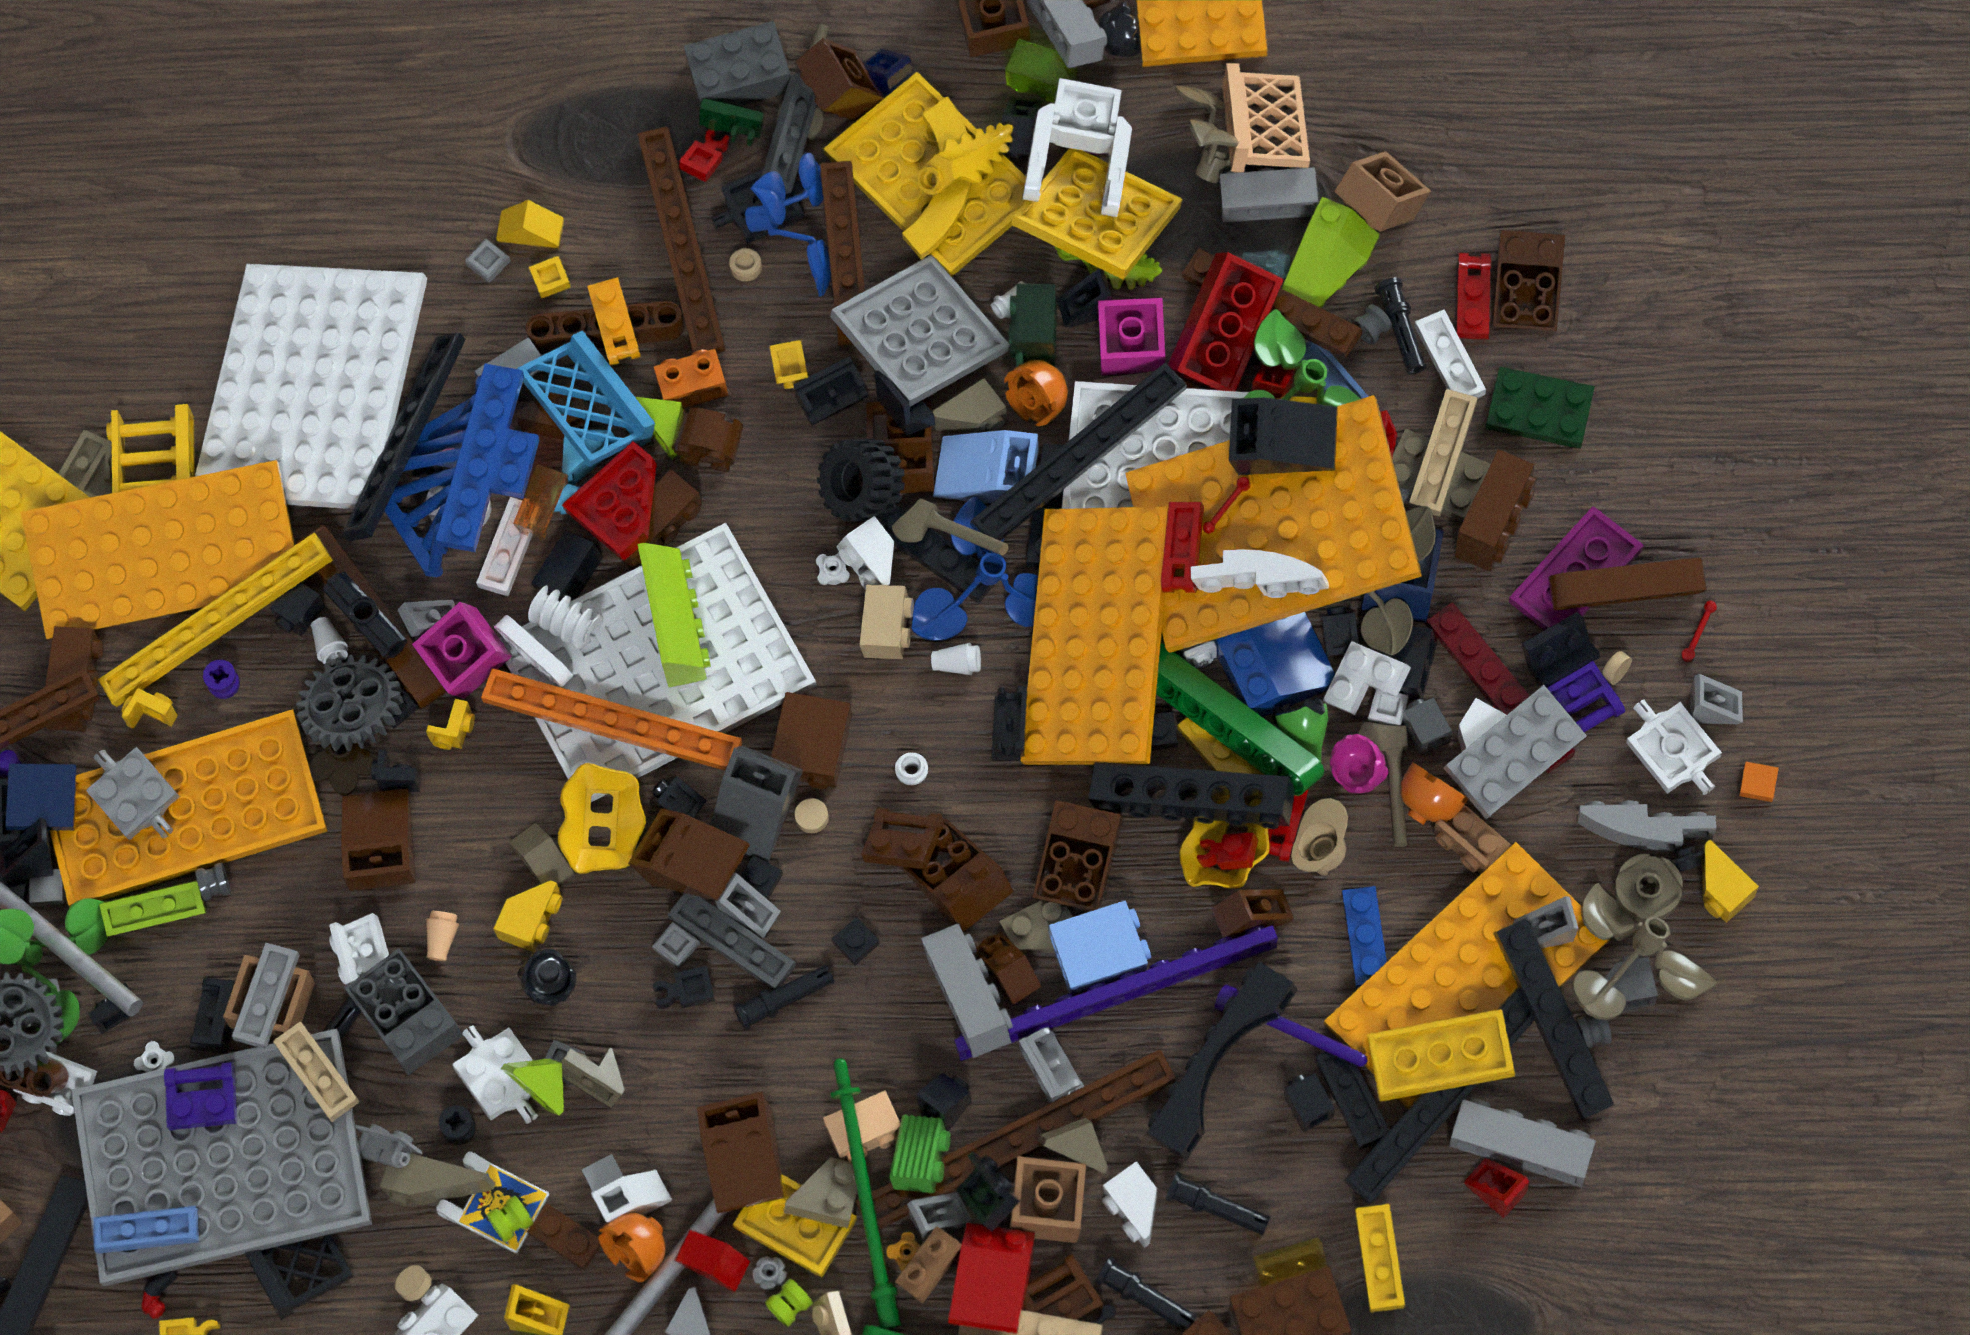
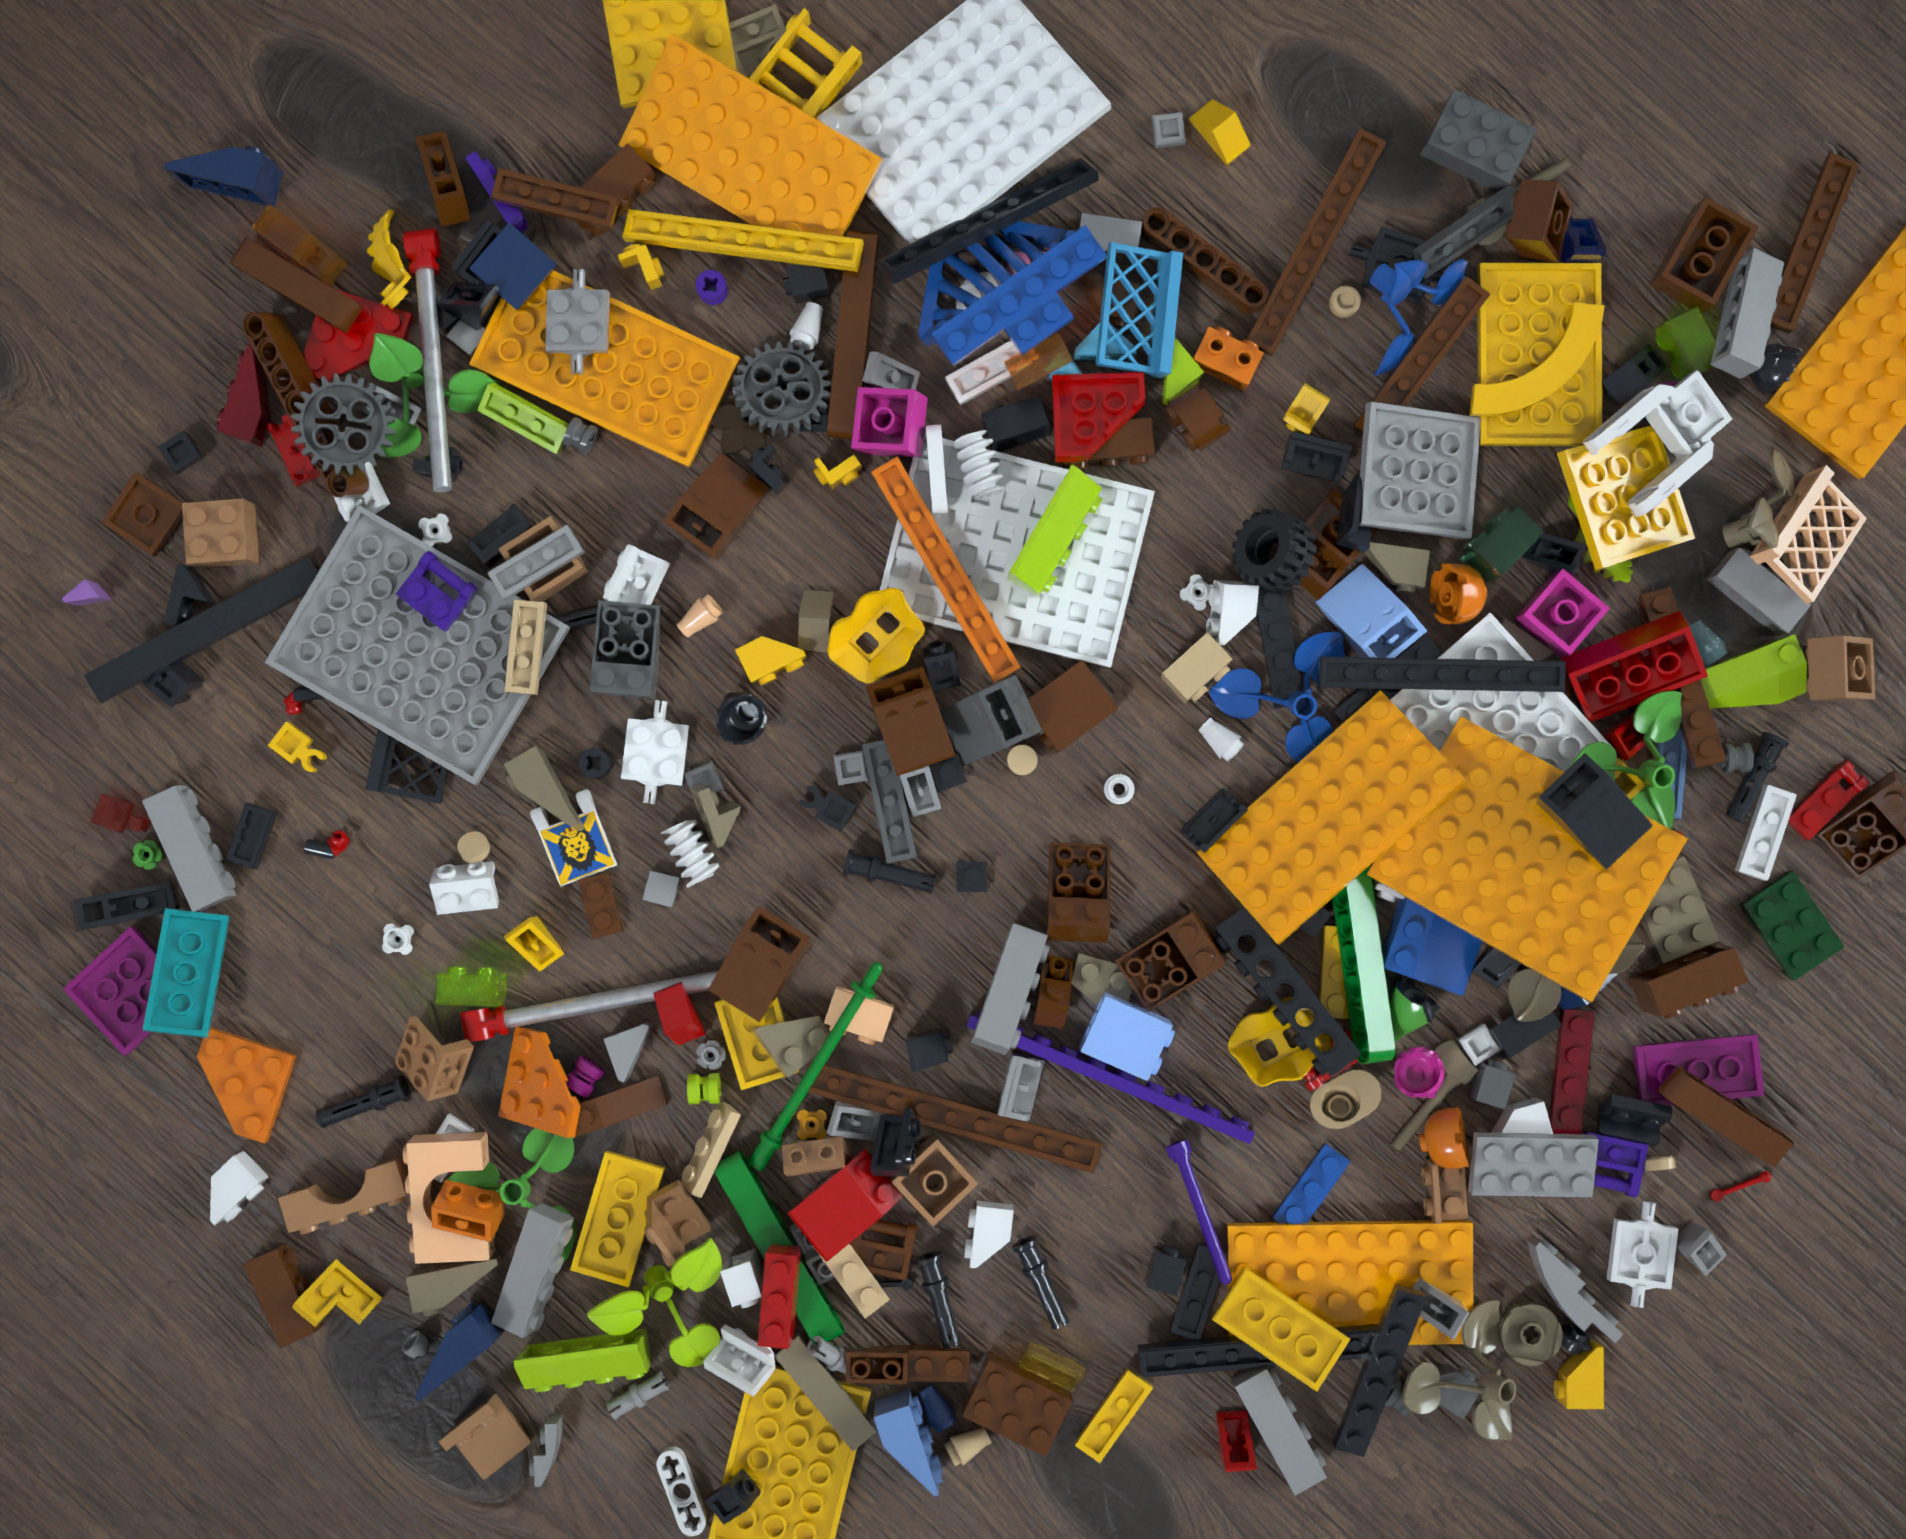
camera: 35 degrees right, 20 degrees up
(146, 1229) = (323, 654): medium blue tile -> none
(353, 603) = (843, 317): black piece -> none
(389, 1149) = (537, 748): light grey hinge -> none
(509, 1219) = (571, 864): lime wheel -> none
(541, 1080) = (672, 785): lime slope -> none
(549, 277) = (1199, 184): yellow plate -> none
(602, 1123) = (690, 851): none -> white piece
(613, 320) = (1211, 265): light orange plate -> none
(631, 1193) = (663, 923): white slope -> none
(634, 1242) = (638, 957): orange cylinder -> none
(703, 159) = (1389, 191): red plate -> none
(731, 118) = (1434, 174): dark green plate -> none
(900, 847) = (1059, 843): reddish brown plate -> none
(919, 1153) = (875, 1073): bright green brick -> none
(925, 515) = (1293, 615): dark tan piece -> none
(965, 159) = (1571, 368): yellow plant -> none
(1001, 304) = (1495, 503): white pin -> none
(1076, 1142) = (985, 1159): dark tan slope -> none
(1182, 545) = (1447, 816): red plate -> none
(1233, 852) = (1276, 1057): red plate -> none
(1243, 484) = (1532, 812): red hinge -> none
(1251, 909) = (1250, 1106): reddish brown slope -> none
(1259, 1001) = (1197, 1180): black arch -> none
(1270, 571) = (1491, 903): white slope -> none
(1358, 671) = (1485, 1006): white plate -> none
(1443, 451) = (1694, 903): tan plate -> none
(1758, 781) = (1675, 1328): orange tile -> none

